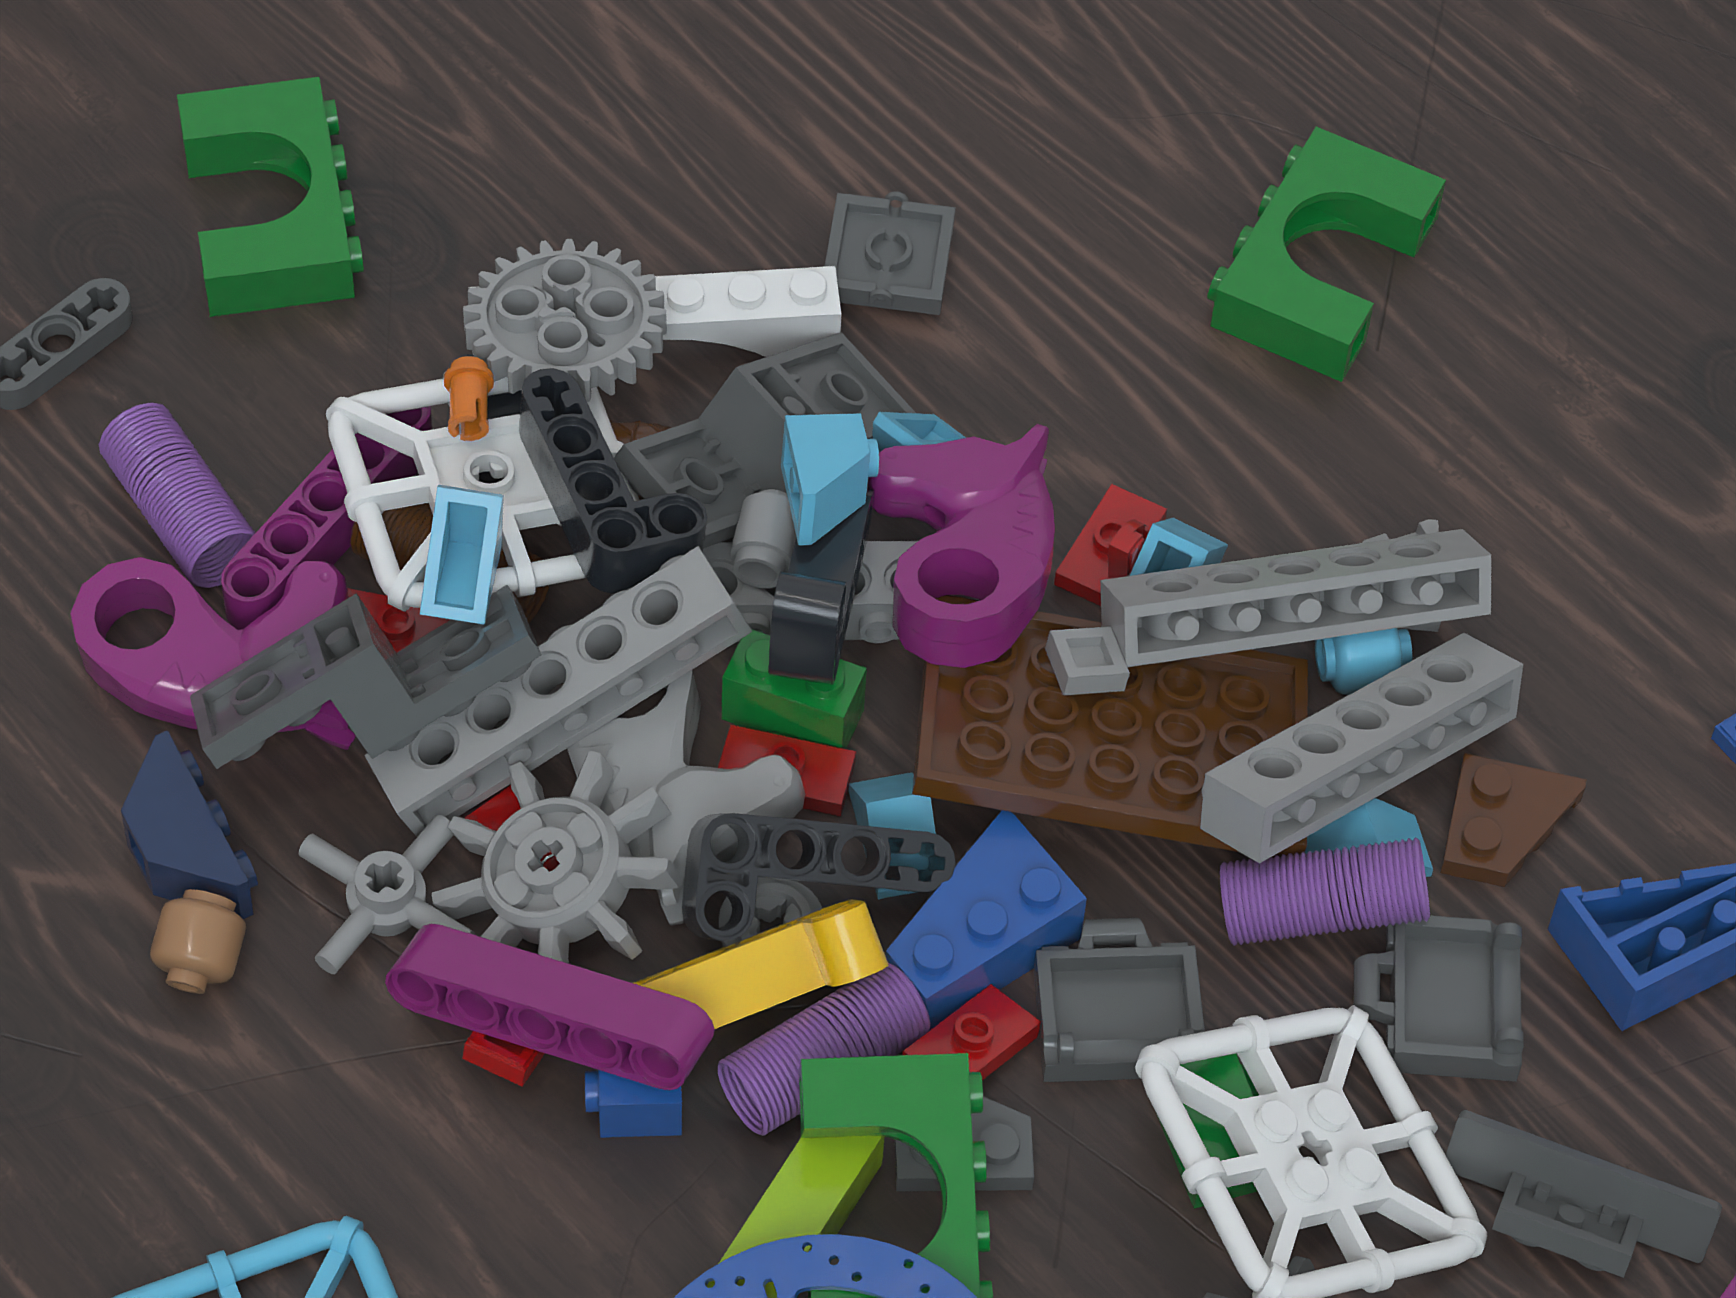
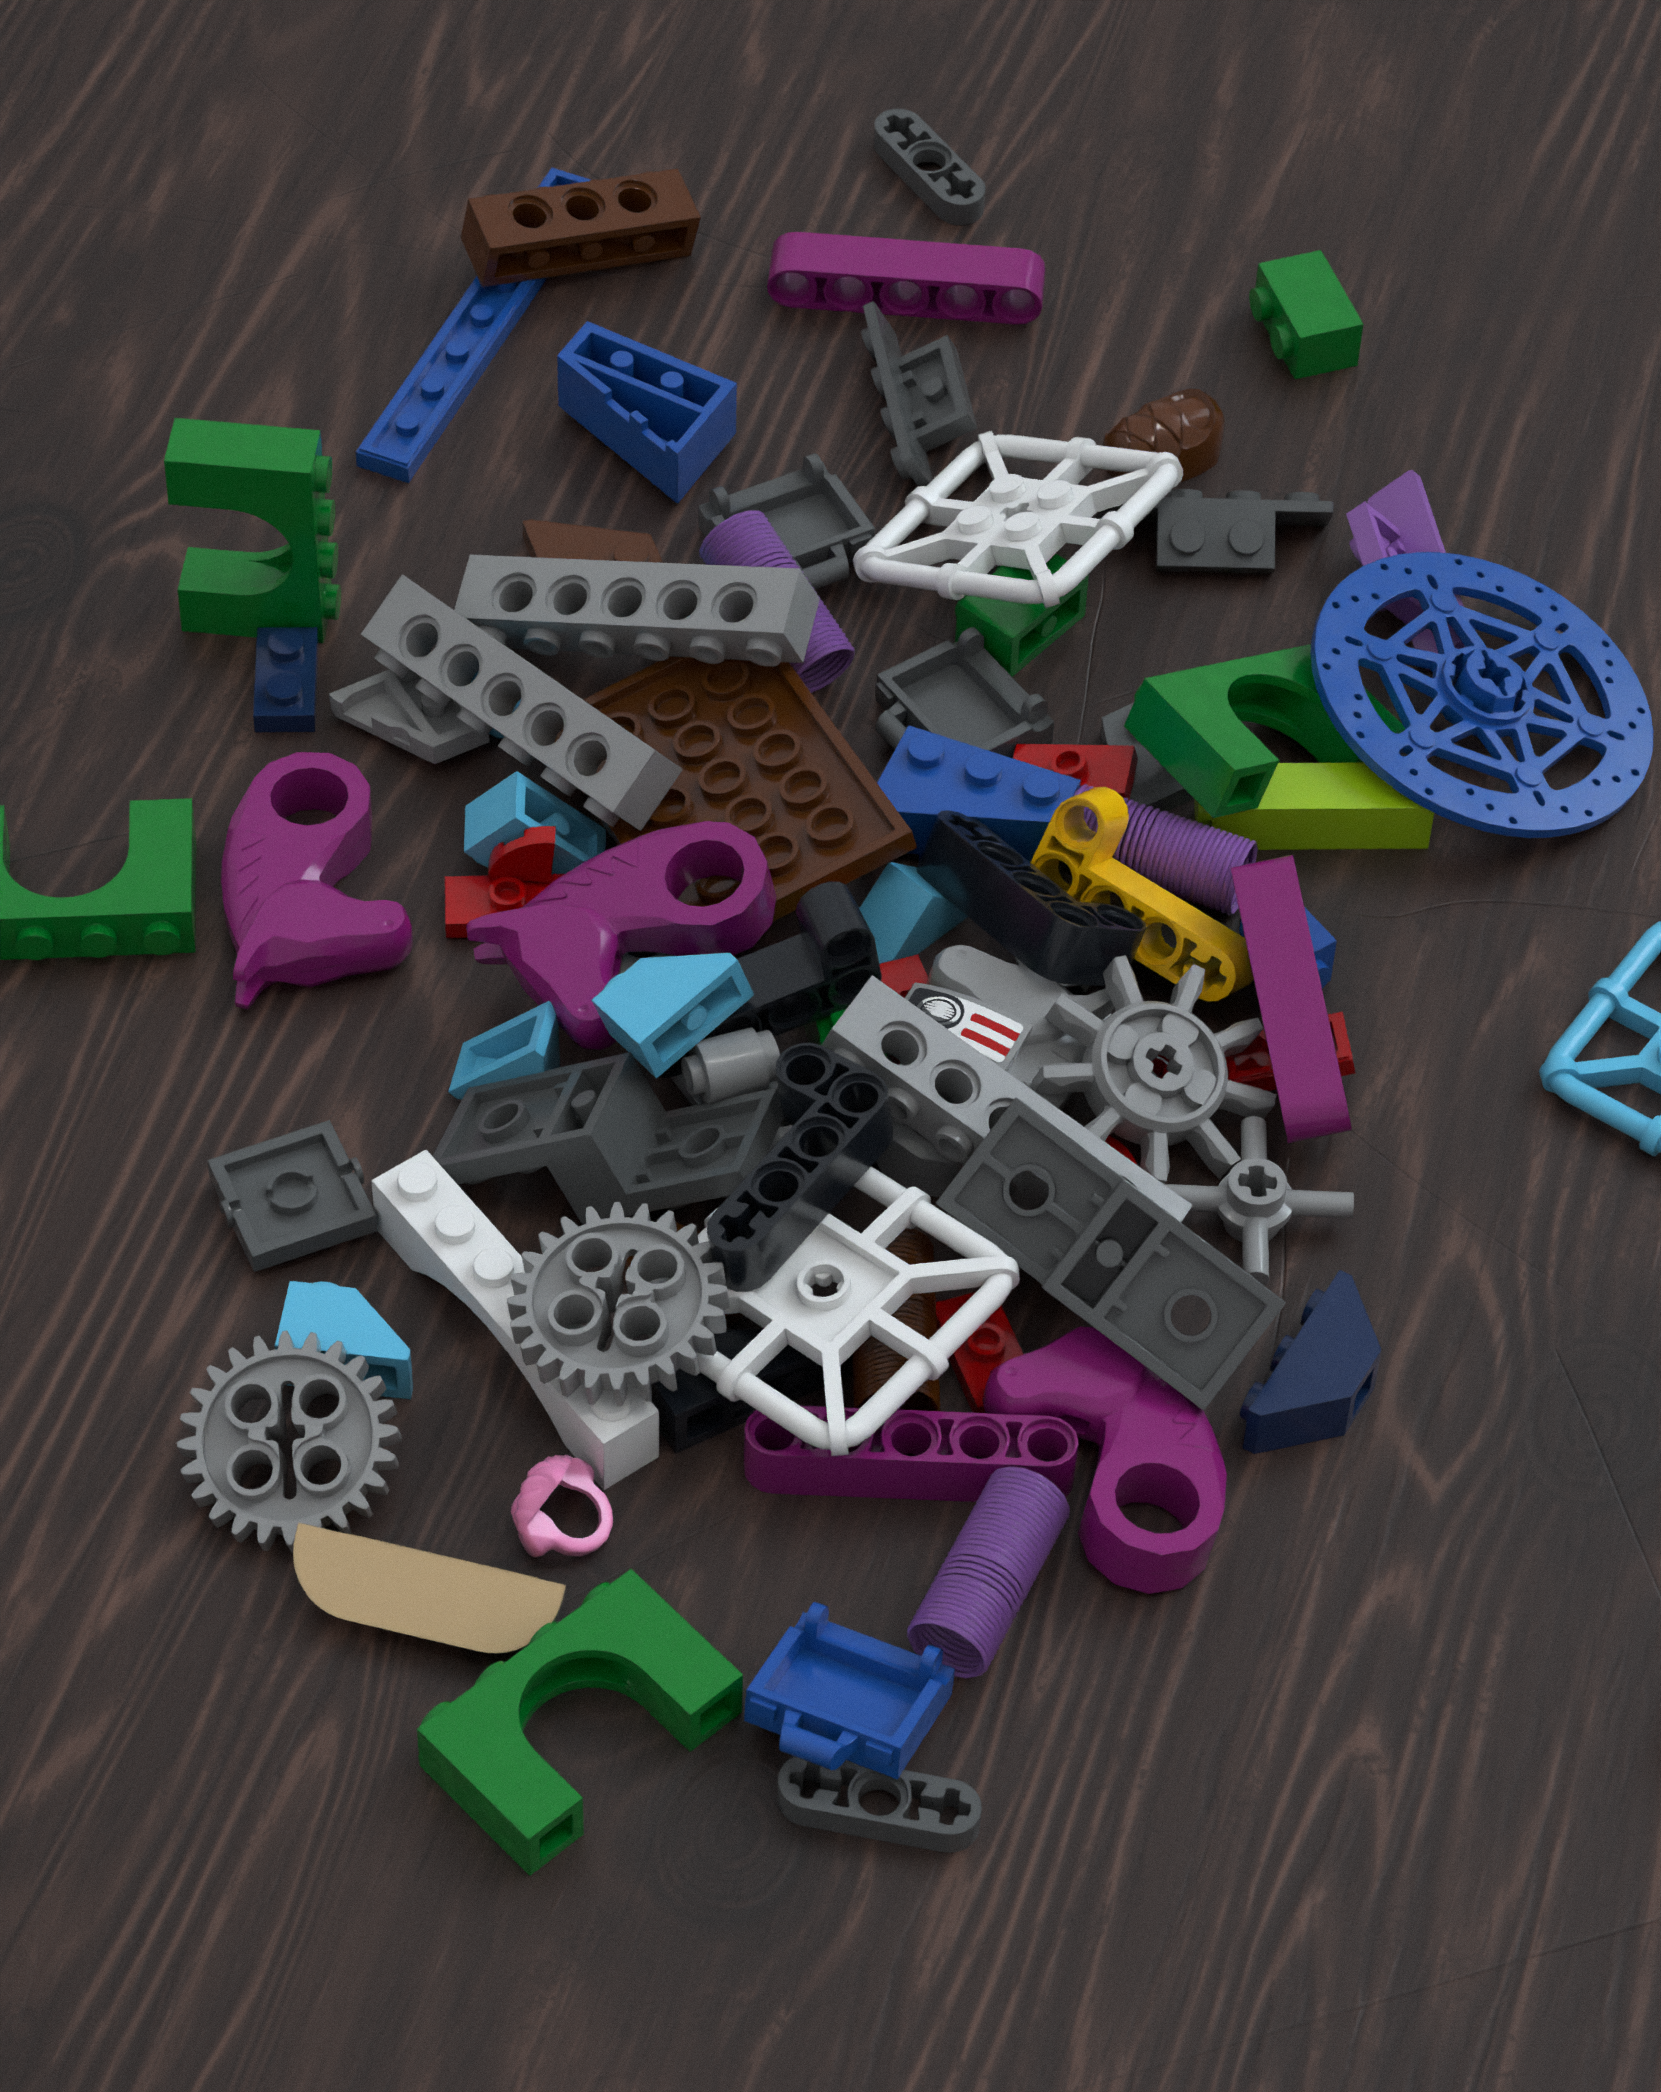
camera: 120 degrees left, 5 degrees down
(148, 348) = (847, 1696): none -> blue piece
(198, 940) = (1408, 1299): medium nougat head -> none
(452, 250) = (537, 1529): none -> bright pink piece
(454, 162) = (422, 1591): none -> tan brick
(462, 554) = (956, 1209): medium azure slope -> none
(469, 387) = (769, 1318): orange pin -> none
(637, 131) = (229, 1447): none -> light grey gear
(701, 727) = (978, 1023): none -> slope
(716, 213) = (348, 1317): none -> medium azure slope
(1087, 660) = (693, 795): light grey plate -> none
(1241, 391) = (283, 874): none -> magenta animal
(1492, 516) = (286, 679): none -> dark blue plate
(1605, 483) = (280, 480): none -> green arch

